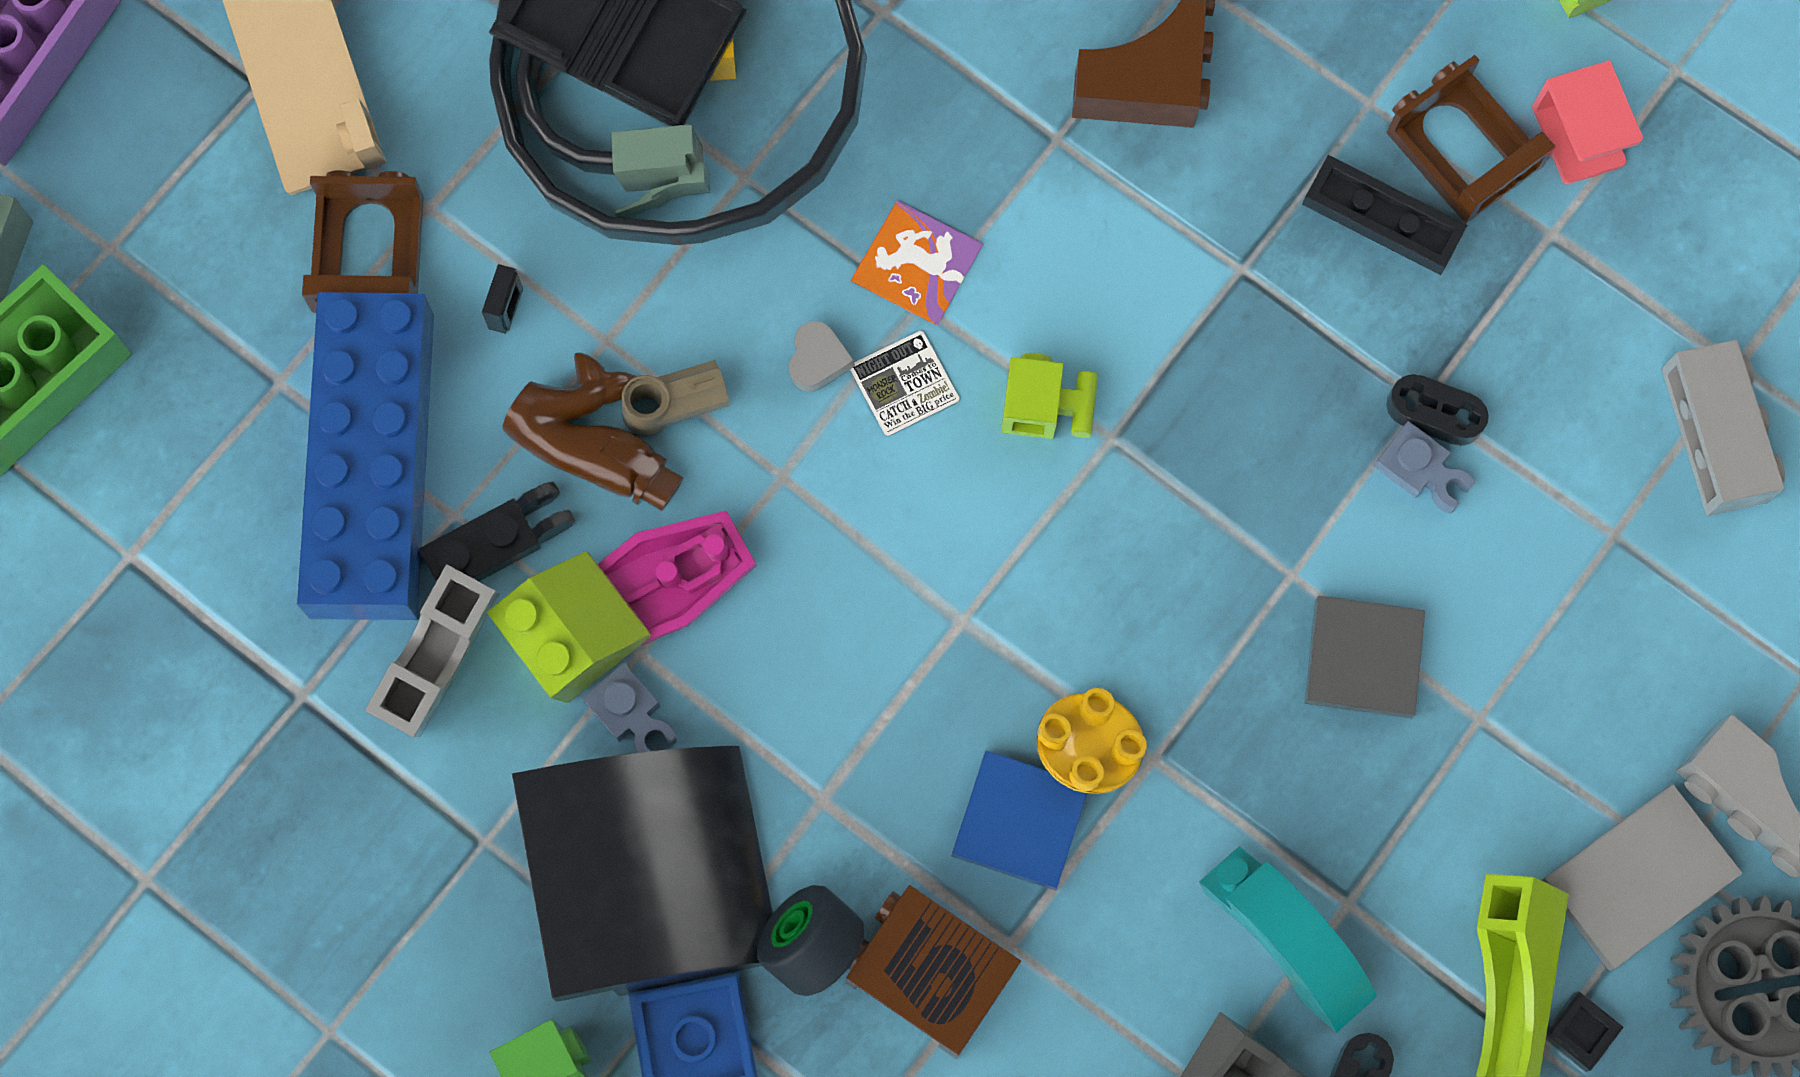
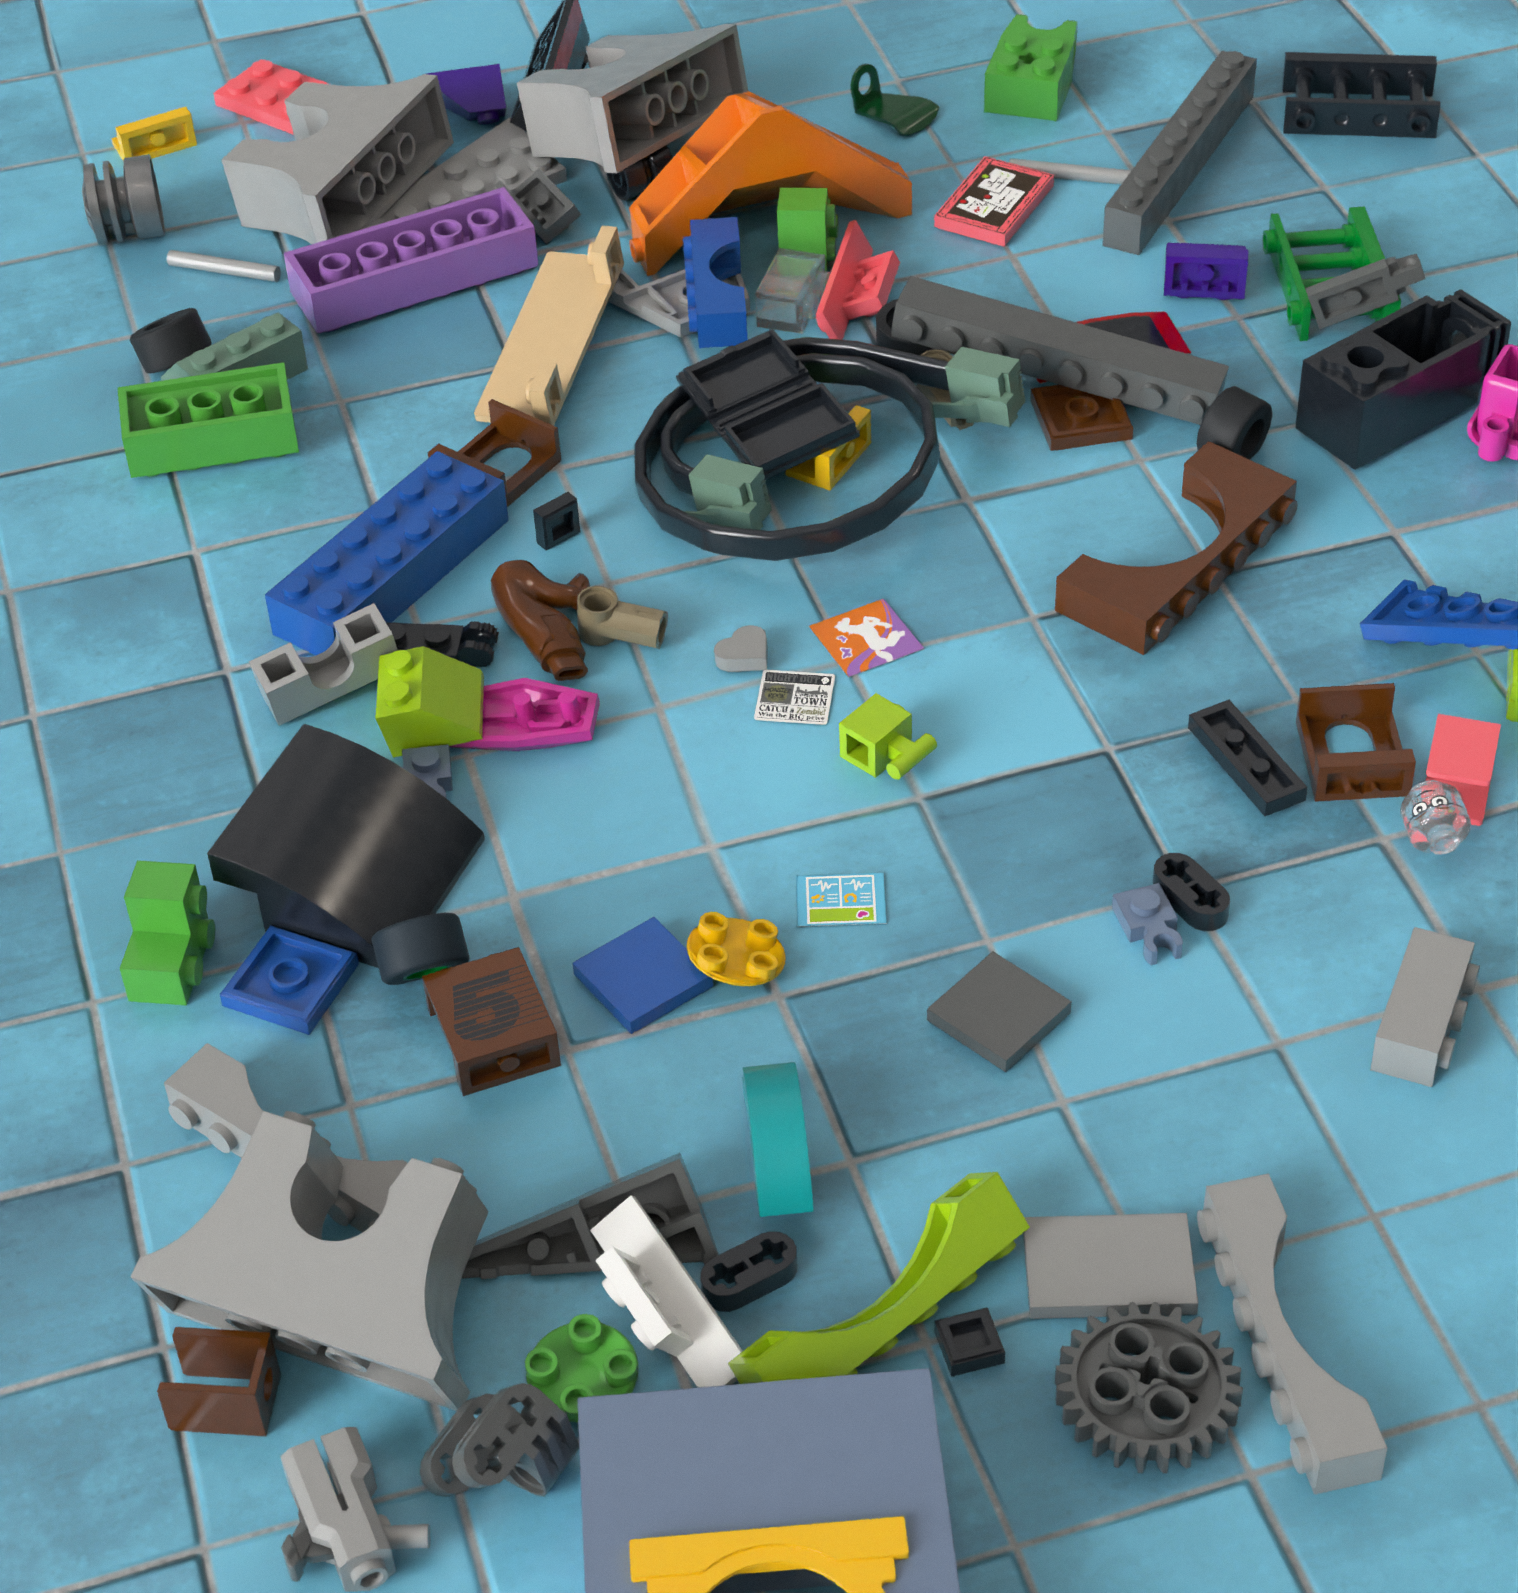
camera: 40 degrees right, 30 degrees down
(1128, 610) = (840, 899): none -> sticker
(1601, 196) = (1435, 817): none -> clear head

